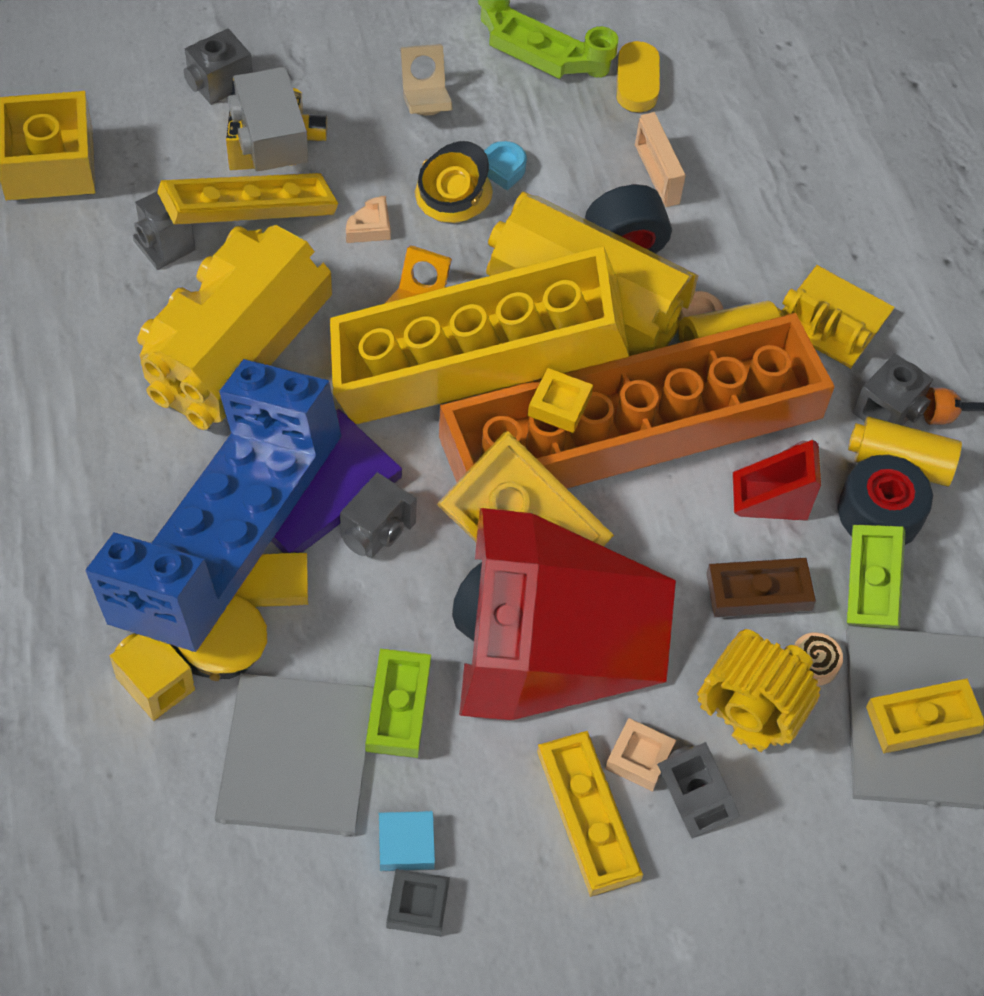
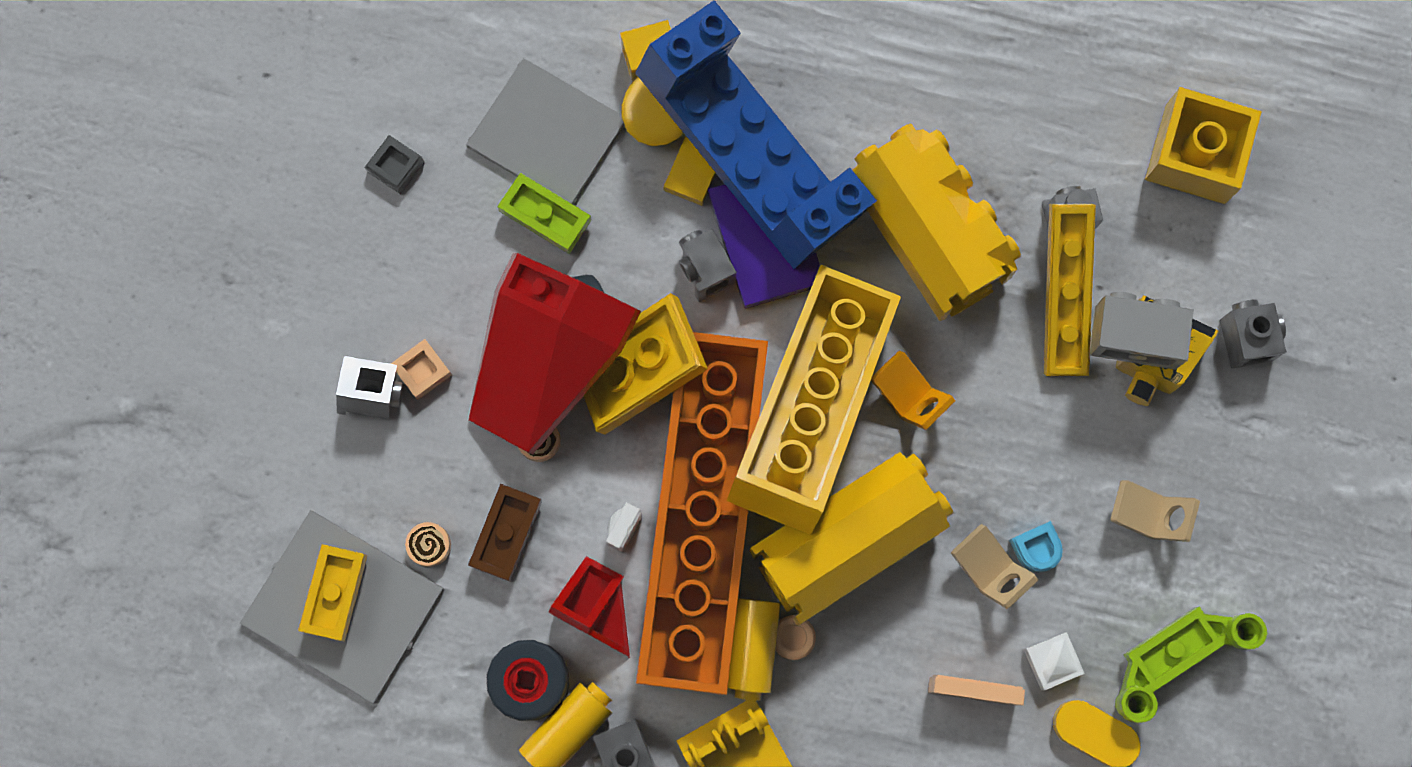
camera: 120 degrees right, 20 degrees up
(369, 222) = (1018, 397): light nougat tile -> none
(406, 841) = (441, 175): medium azure tile -> none
(454, 183) = (1025, 487): yellow piece -> none
(543, 183) = (991, 567): none -> tan bracket
(560, 400) = (718, 430): yellow plate -> none
(589, 813) = (398, 310): yellow tile -> none
(596, 121) = (1054, 661): none -> white tile
(634, 214) = (902, 610): black wheel -> none
(690, 480) = (622, 526): none -> white tile
(761, 690) = (407, 468): yellow brick -> none
(876, 576) = (463, 626): lime plate -> none

